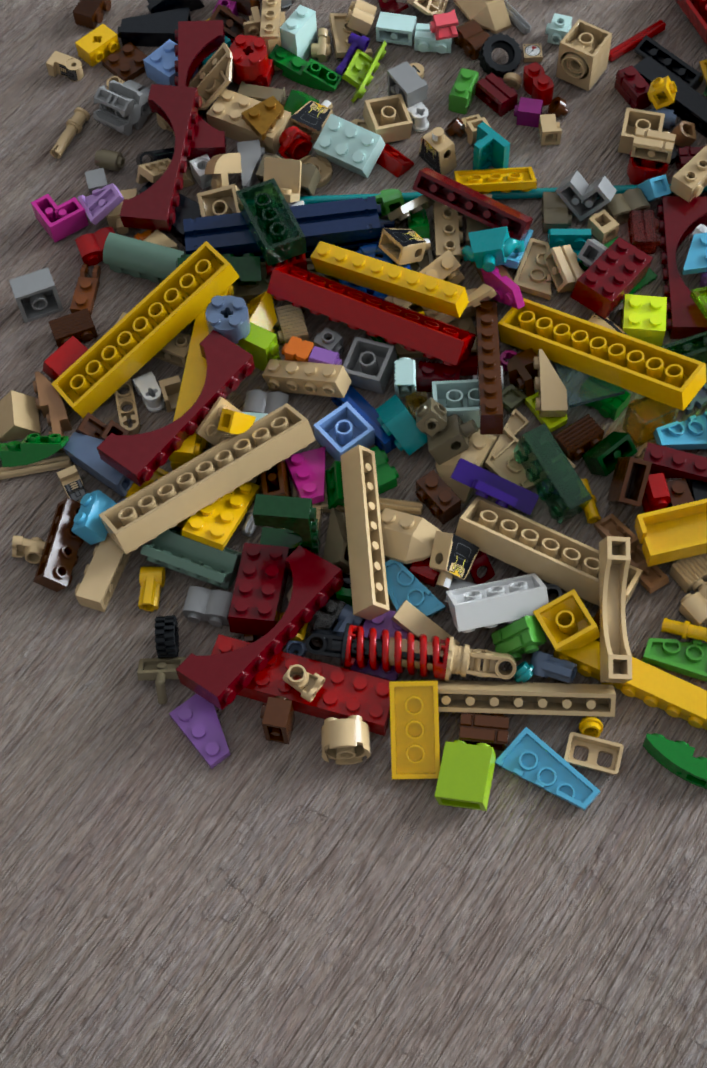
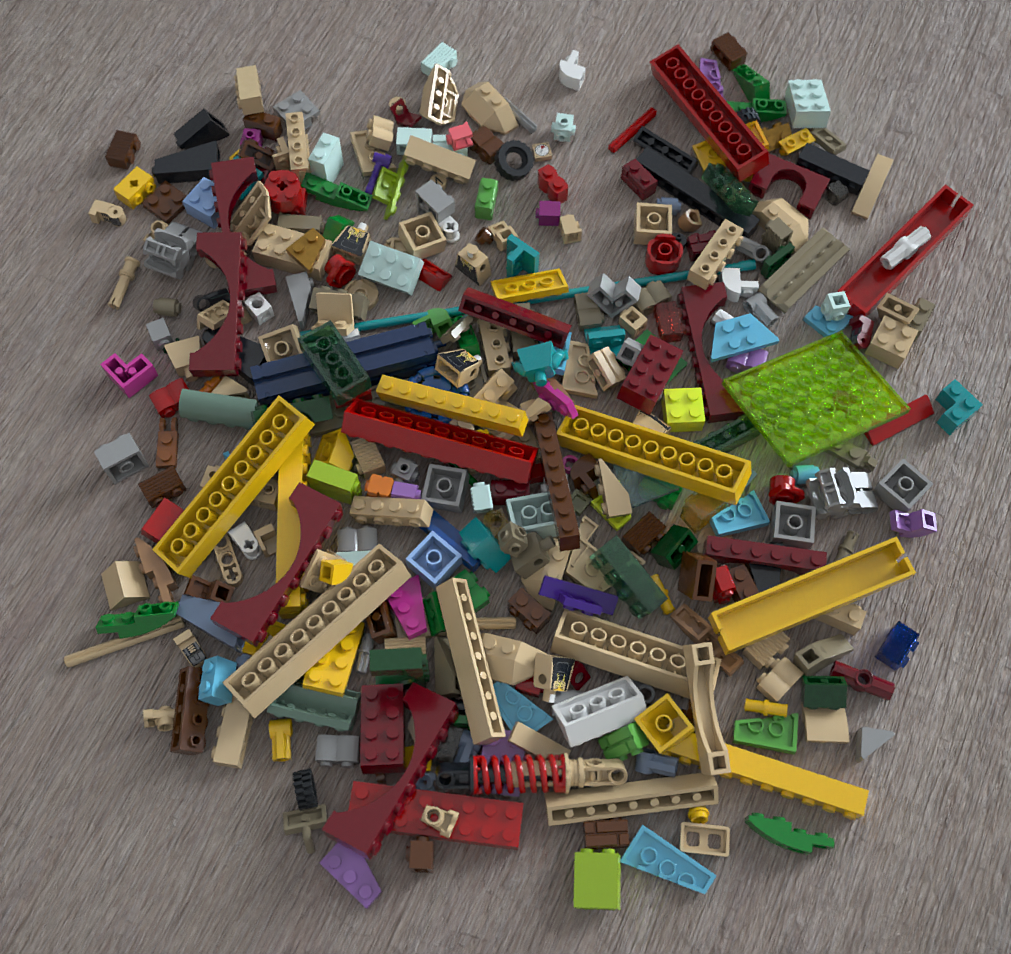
camera: 15 degrees left, 5 degrees up
(101, 202) = (167, 356): lavender wing -> none
(222, 165) = (274, 307): tan brick -> none
(228, 317) = (310, 467): sand blue brick -> none
(323, 48) = (349, 168): tan plate -> none
(345, 740) = (485, 865): tan brick -> none
(414, 729) = (546, 846): yellow plate -> none
(418, 46) = (438, 159): none -> tan brick
(496, 94) = (516, 198): dark red brick -> none
(512, 80) = (528, 183): tan tile -> none
(523, 672) = (633, 772): teal plate -> none
(558, 107) = (573, 206): reddish brown tile -> none
(583, 55) = (590, 153): tan brick -> none
(653, 145) = (667, 239): tan brick -> none
(655, 188) = (674, 279): medium azure panel -> none
(662, 92) = (666, 184): yellow brick -> none

